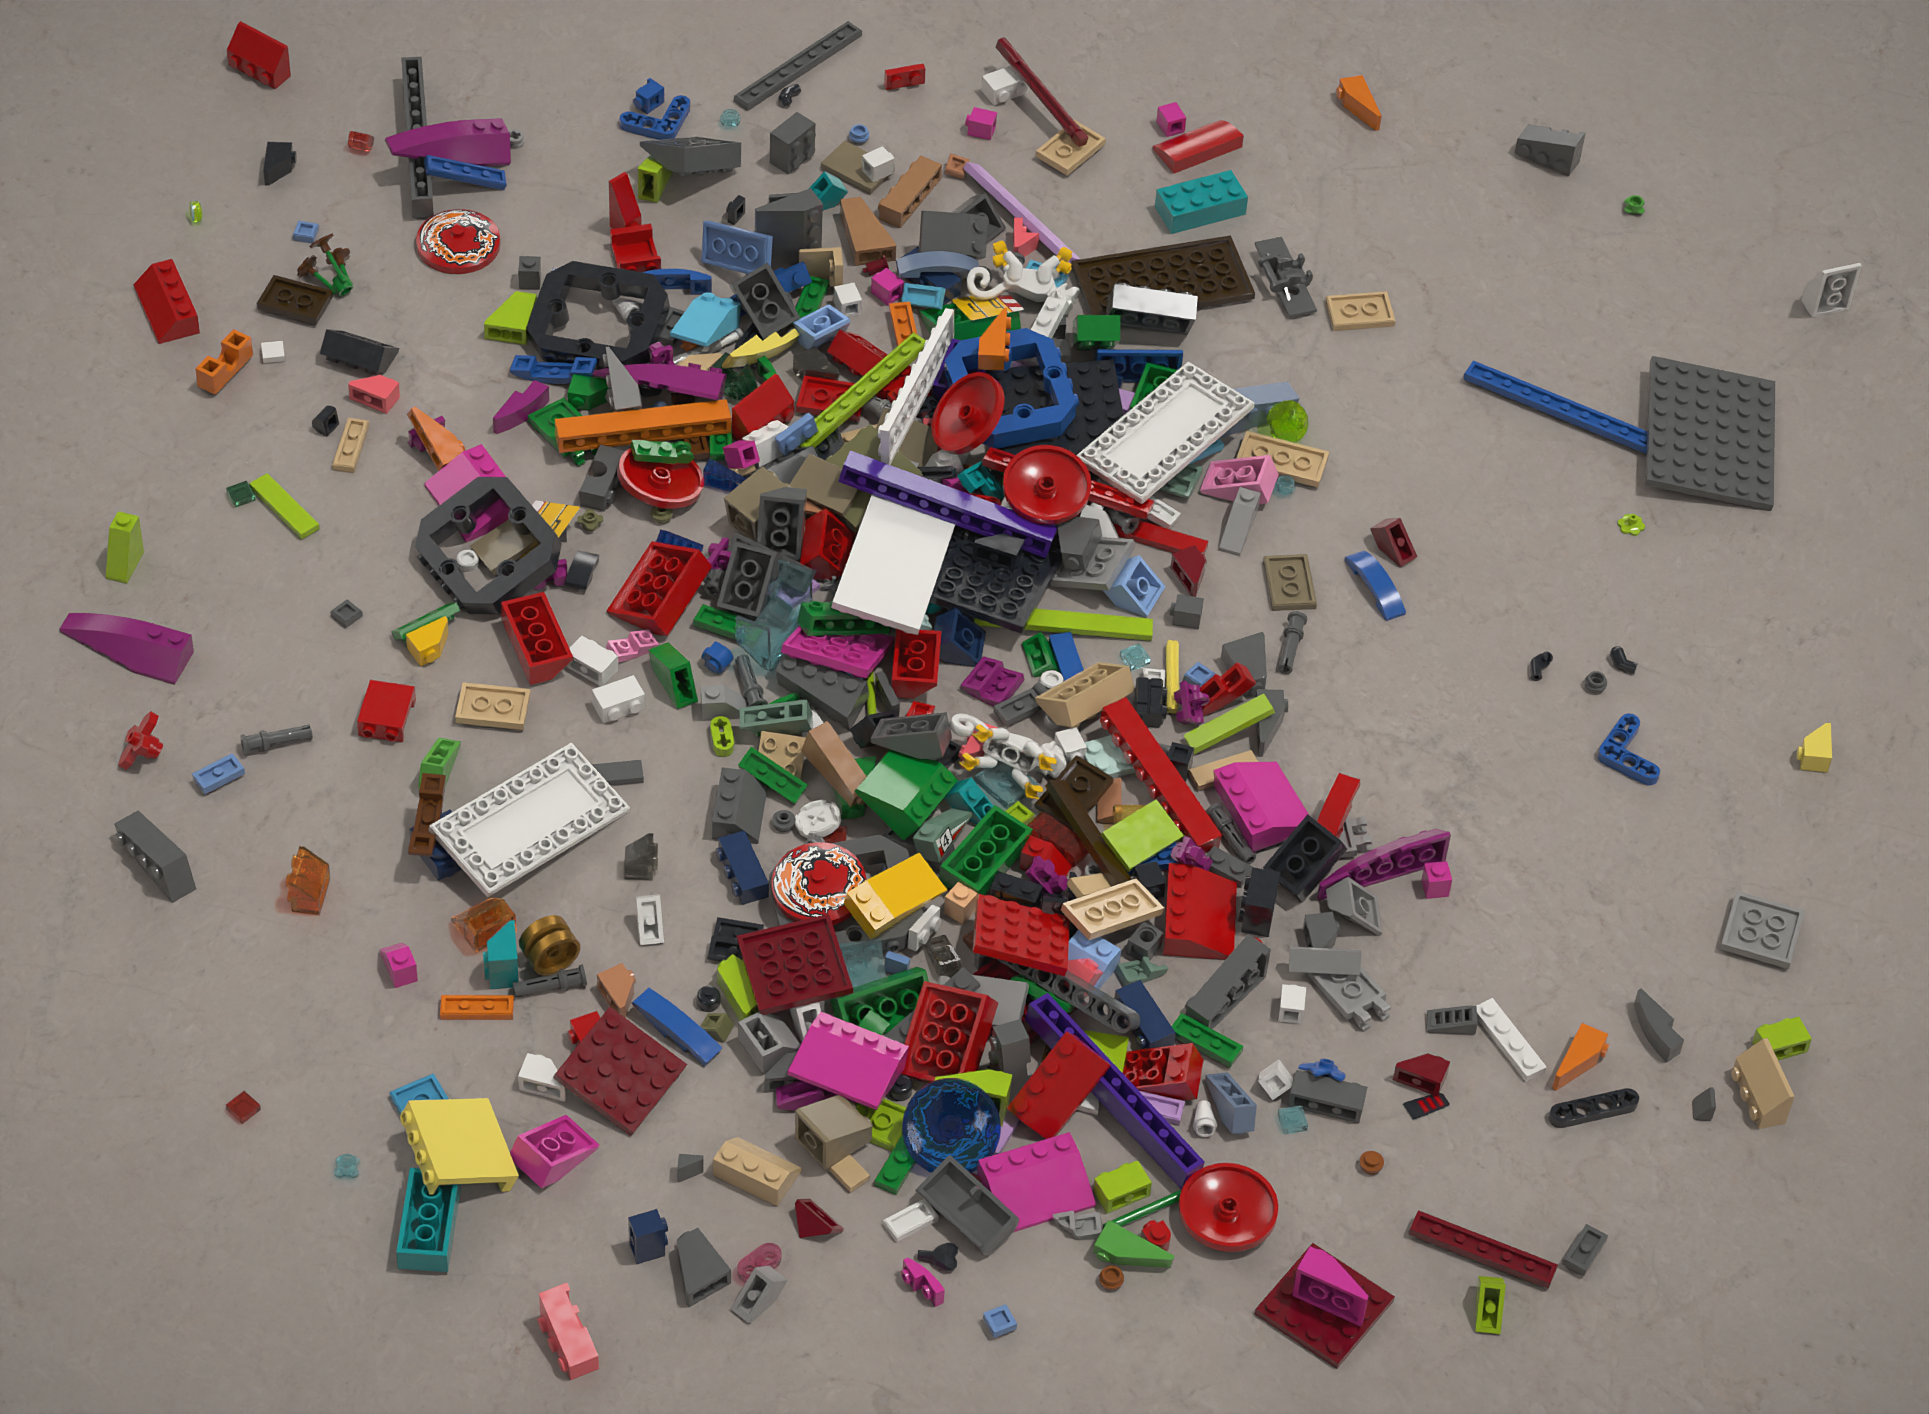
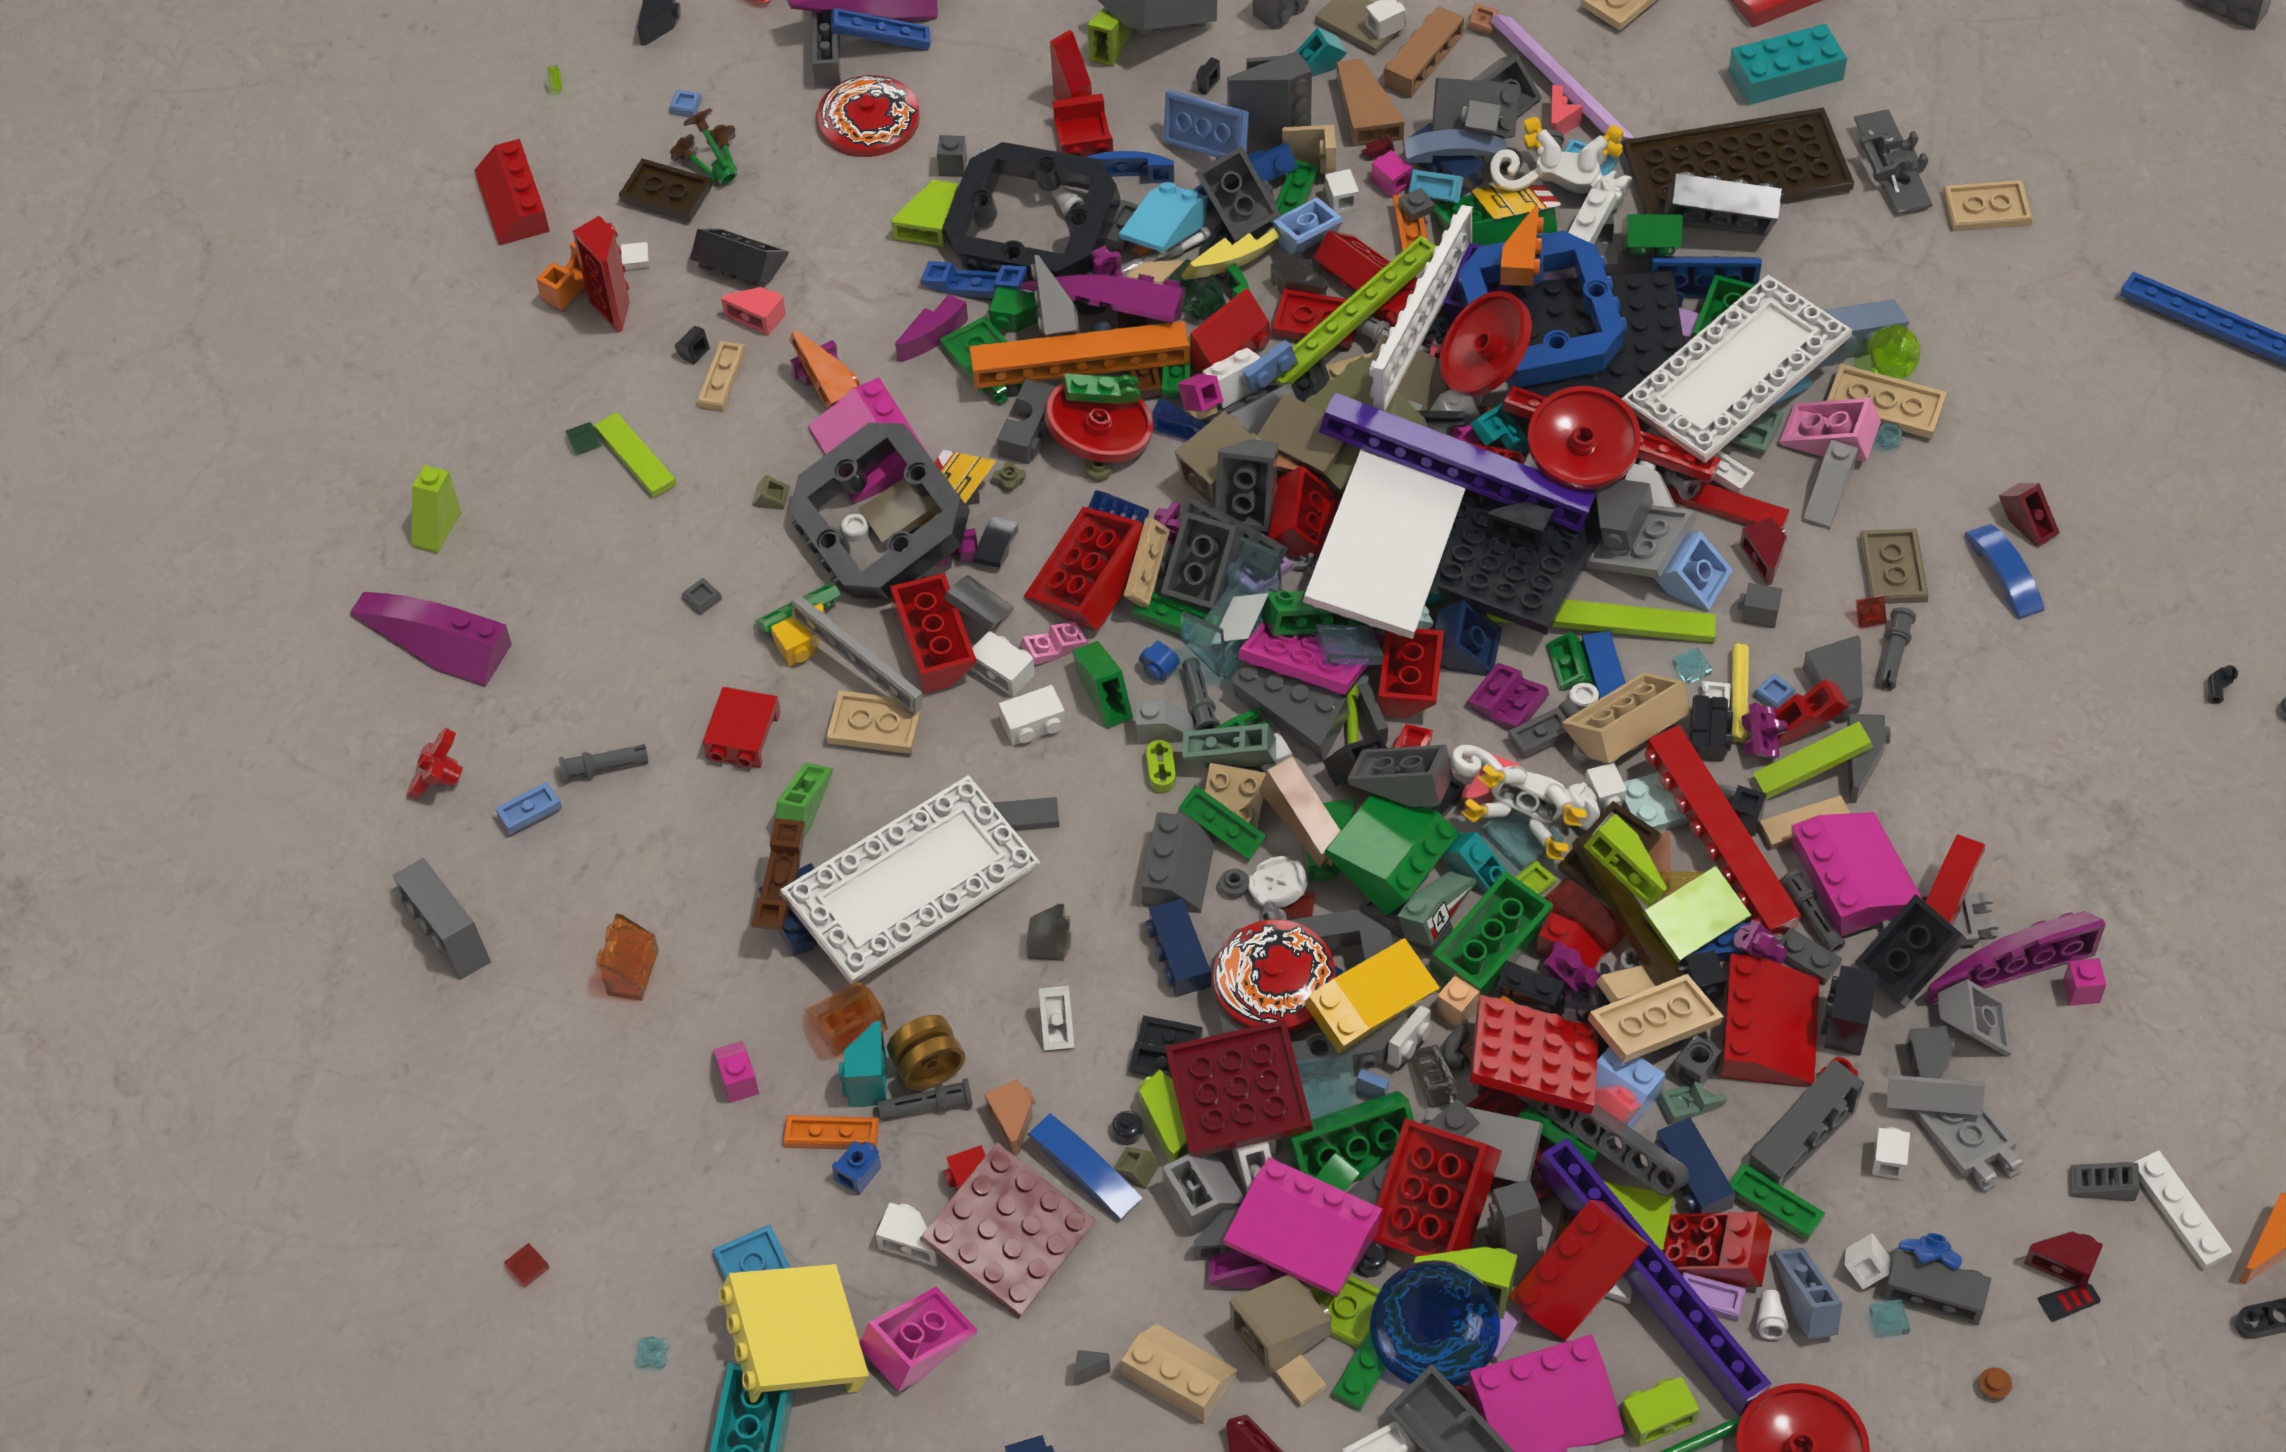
camera: 10 degrees right, 5 degrees up
(251, 361) = (603, 270): none -> red slope
(397, 535) = (770, 493): none -> olive slope
(477, 653) = (856, 654): none -> light grey tile
(499, 1030) = (857, 1174): none -> blue brick
(571, 614) = (978, 602): none -> dark grey slope
(705, 582) = (1146, 562): none -> tan tile
(783, 620) = (1242, 616): none -> white sticker
(867, 642) = (1349, 644): none -> clear light blue plate
(908, 310) = (1416, 204): none -> dark grey plate
(957, 935) = (1452, 1046): none -> dark grey arm
(958, 241) = (1481, 116): none -> light grey brick
(1088, 795) = (1627, 859): none -> lime slope
(1272, 615) = (1871, 611): none -> clear red slope

